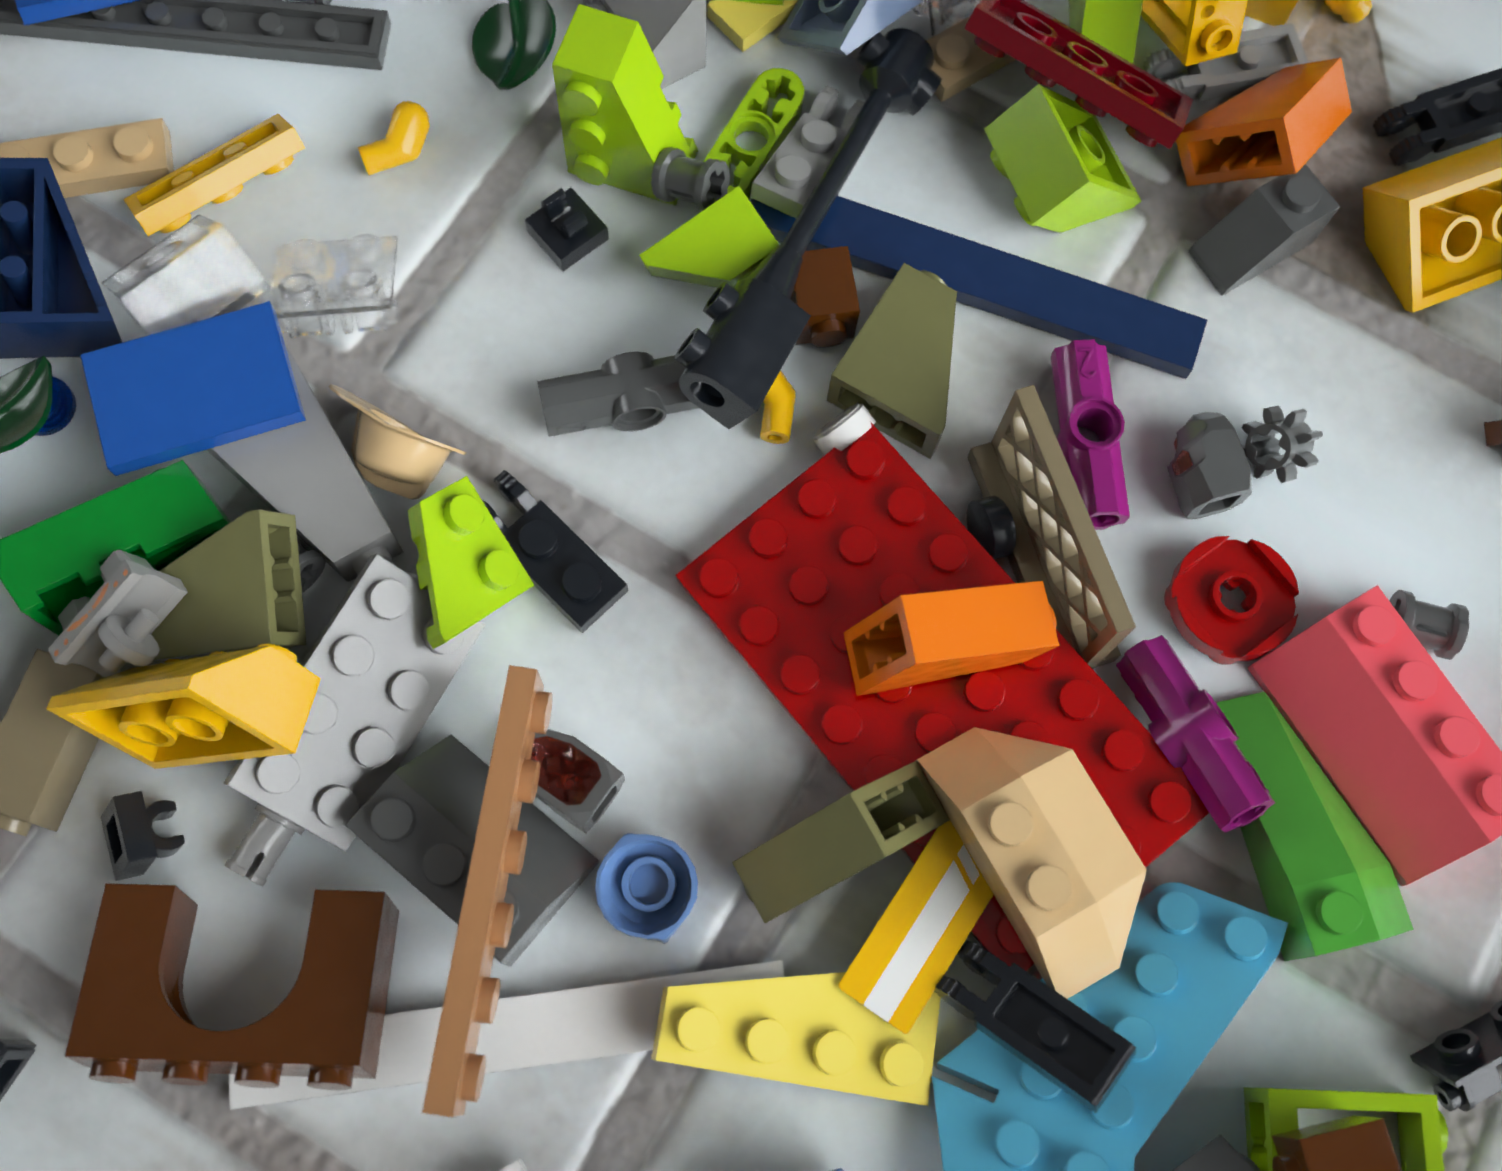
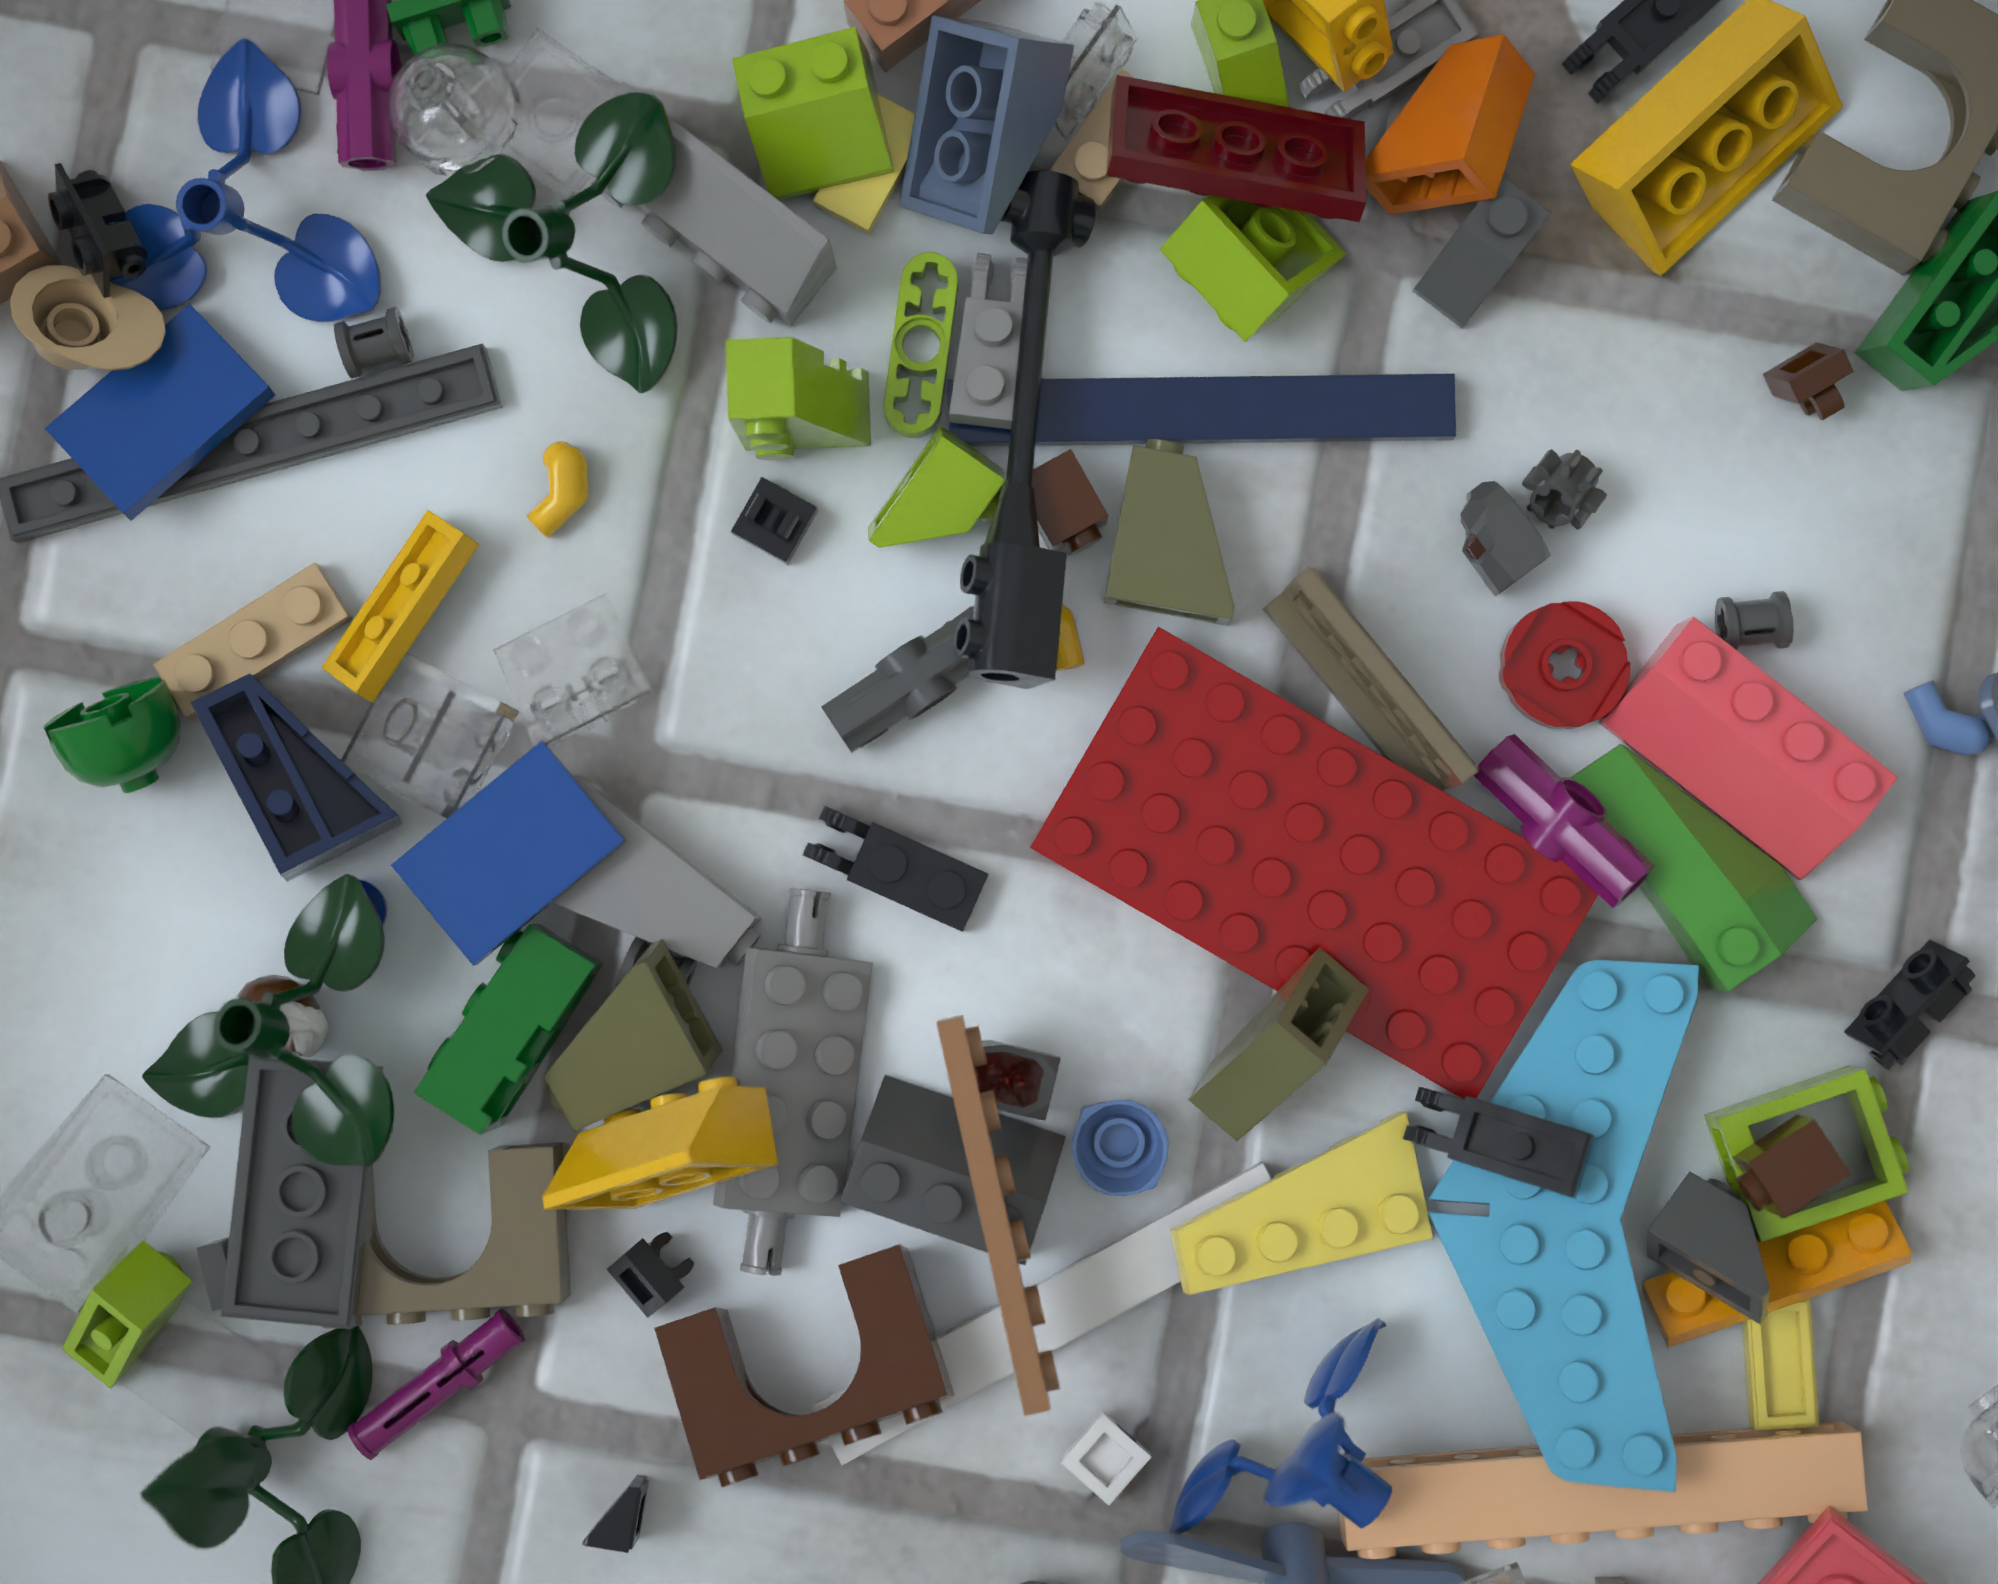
camera: 10 degrees left, 15 degrees up
(119, 618) = (567, 1106): light grey hips -> none
(391, 452) = (711, 827): tan piece -> none
(462, 560) = (833, 918): lime wing -> none
(689, 178) = (884, 432): dark grey bush -> none
(844, 429) = (1135, 639): white tile -> none
(919, 932) = (1383, 1066): yellow sticker -> none
(950, 635) = (1313, 828): orange slope -> none
(992, 525) = (1312, 684): black tile -> none
(1043, 850) = (1457, 984): tan wedge -> none
(1087, 401) = (1360, 511): magenta piece -> none

